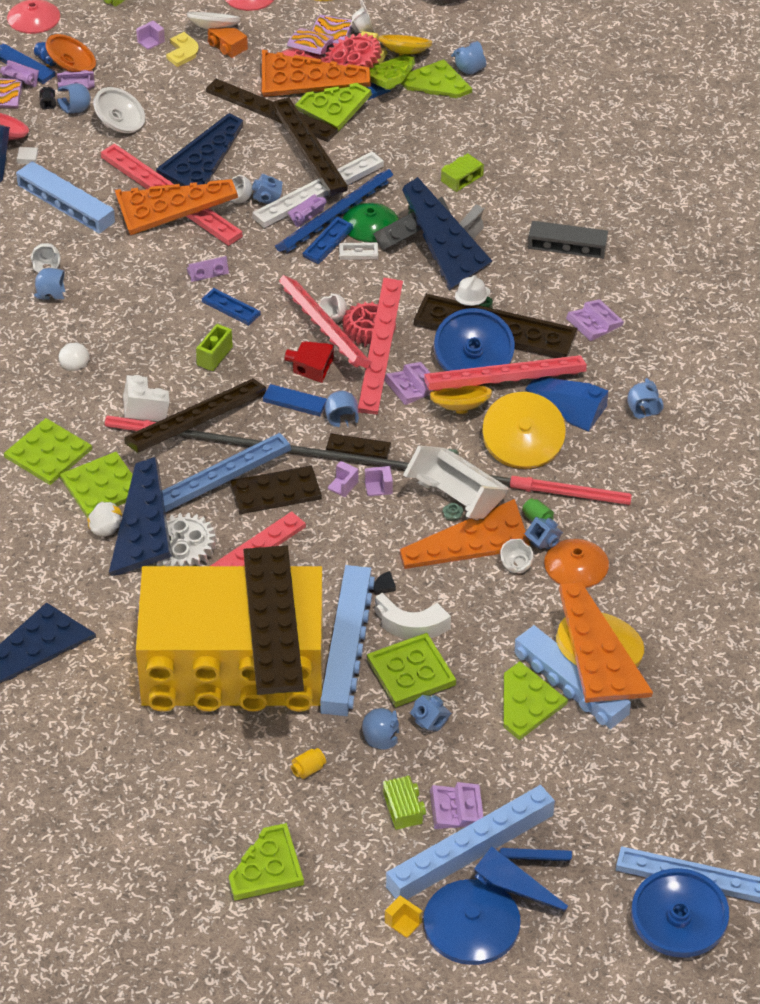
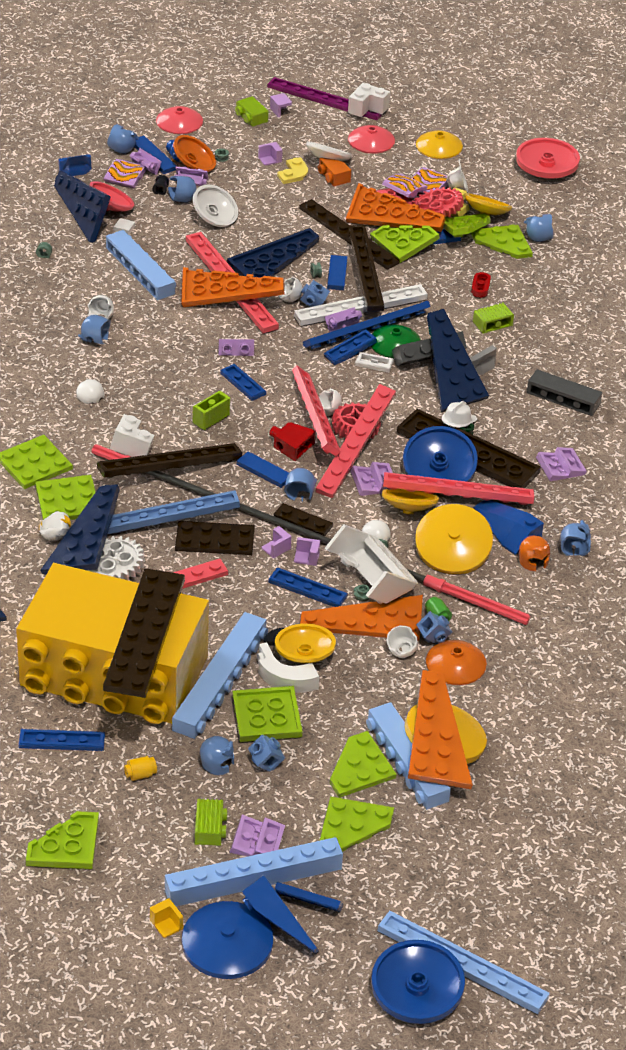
camera: 15 degrees right, 5 degrees down
(97, 47) = (222, 155): none -> sand green bush
(212, 754) = (62, 740): none -> blue tile
(255, 159) = (316, 270): none -> sand green bush
(278, 157) = (337, 272): none -> blue tile
(394, 520) = (307, 587): none -> blue tile
(421, 583) = (305, 643): none -> yellow dish
(433, 137) = (481, 284): none -> red plate
(440, 438) = (378, 529): none -> white hair
(545, 761) = (354, 821): none -> lime plate
(608, 420) = (533, 547): none -> orange helmet

